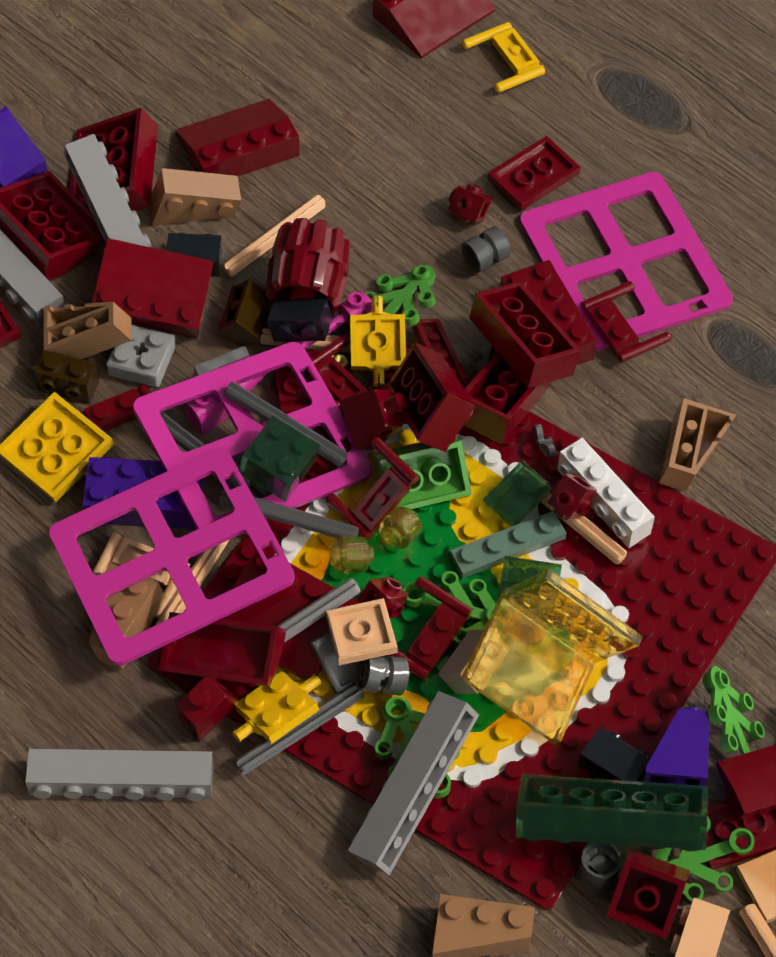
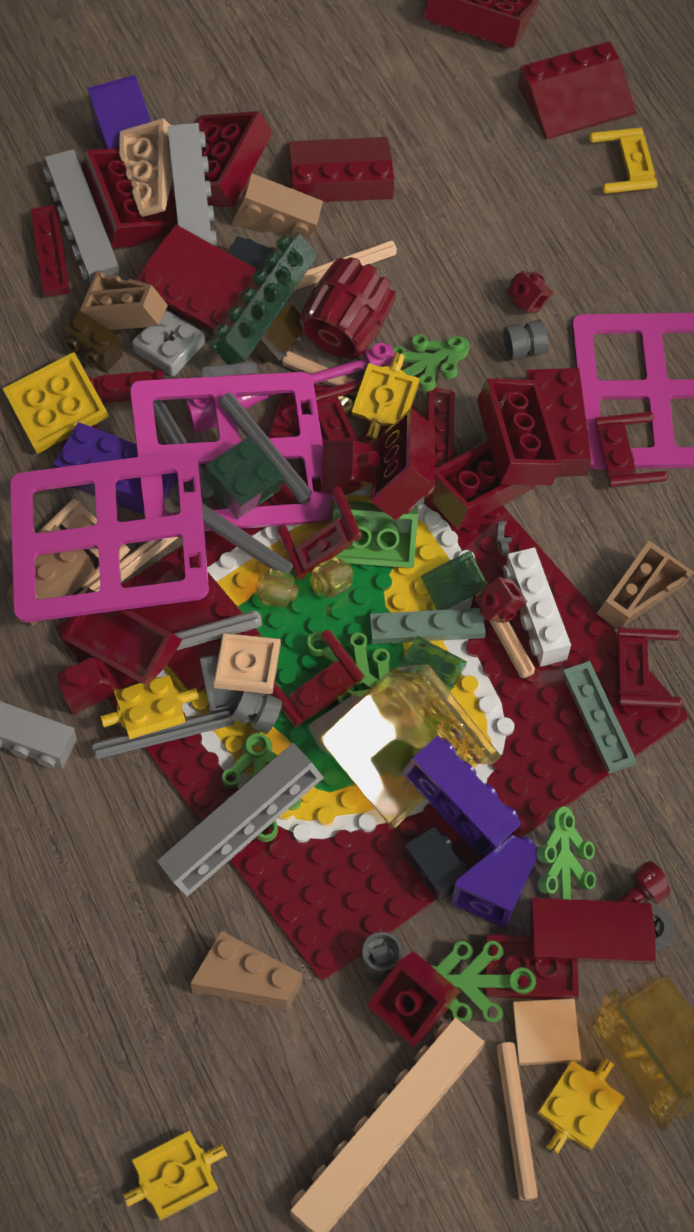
camera: 20 degrees right, 5 degrees up
(53, 189) = (148, 164): none -> light nougat wedge
(222, 284) = (263, 298): none -> clear green brick
(300, 320) = (321, 353): black brick -> none
(389, 590) = (291, 635): dark red brick -> none
(534, 173) = (604, 280): dark red plate -> none
(612, 812) = (409, 911): clear green brick -> none
(615, 690) = (461, 796): none -> dark purple brick
(705, 576) = (599, 717): none -> sand green plate
(718, 521) = (634, 667): none -> dark red plate

